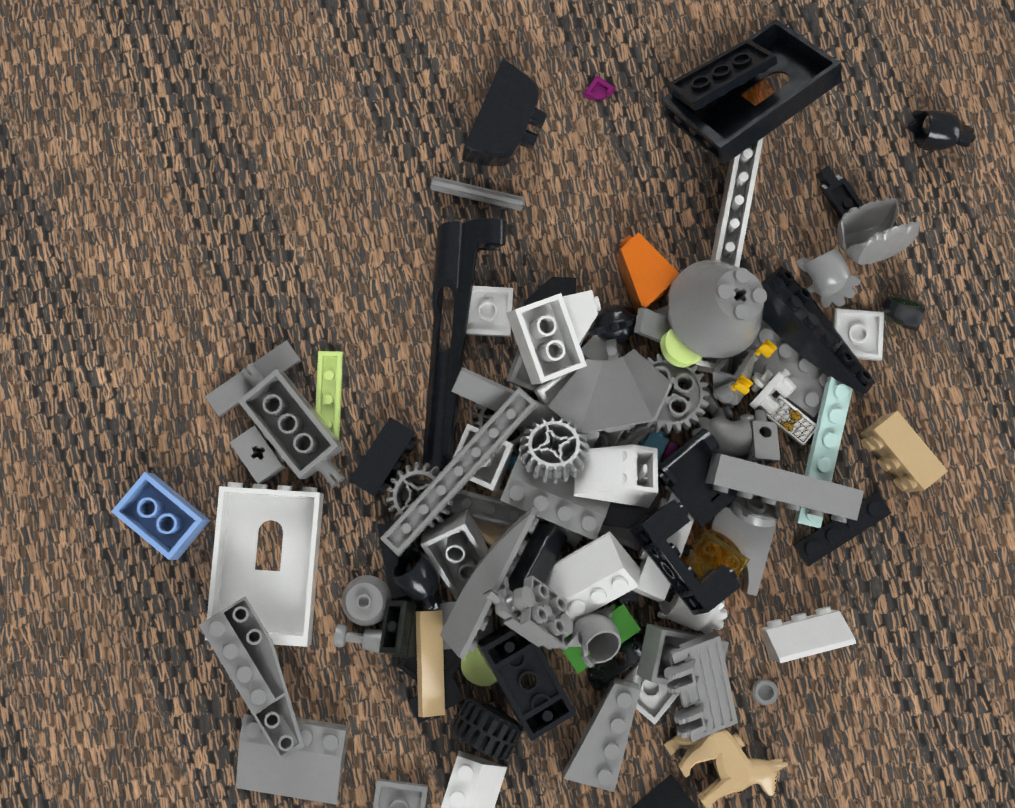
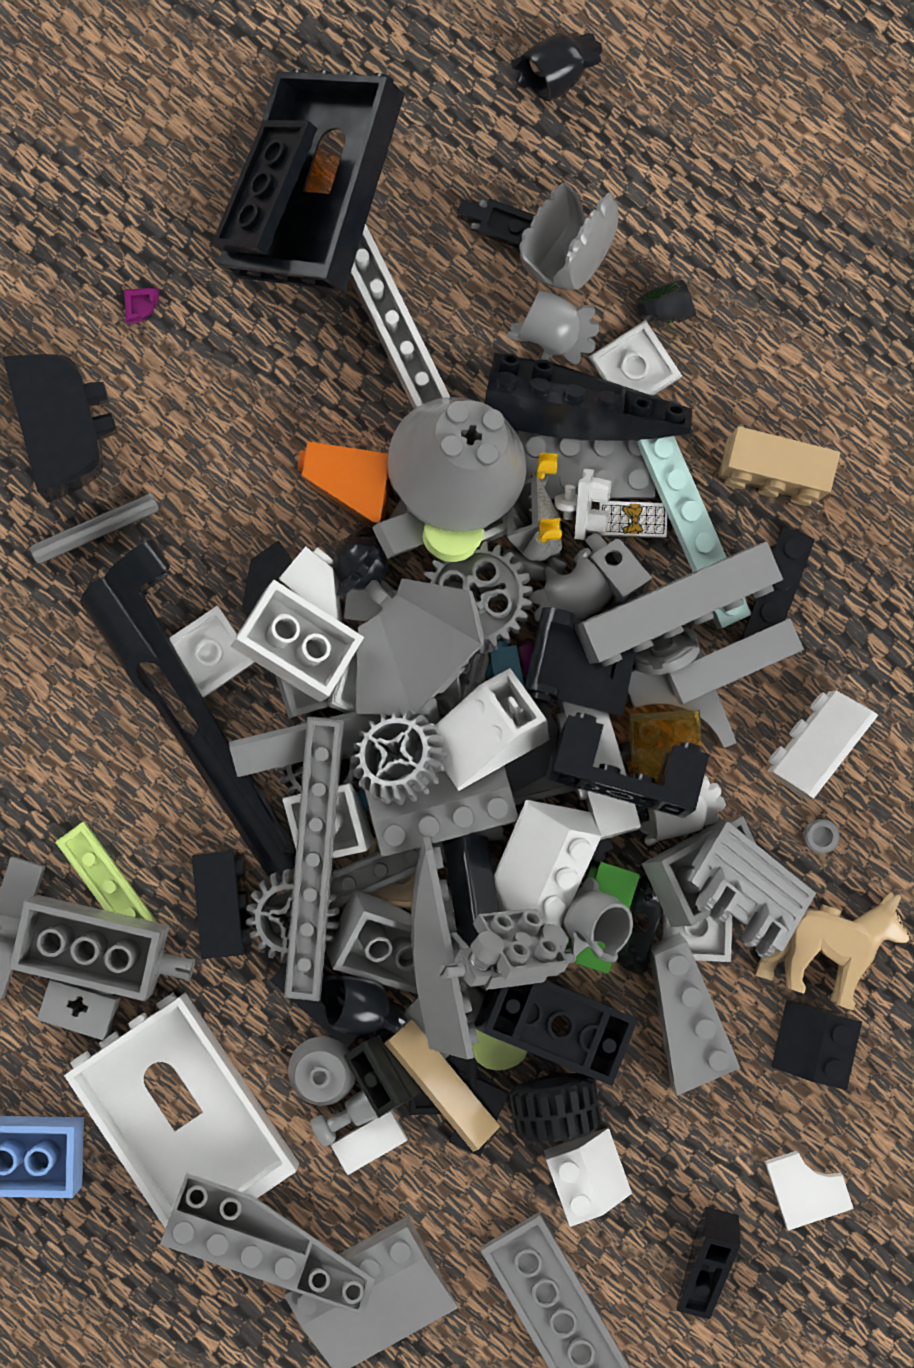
camera: 40 degrees left, 5 degrees up
(361, 663) = (368, 1142): none -> white tile
(791, 547) = (735, 661): none -> light grey tile

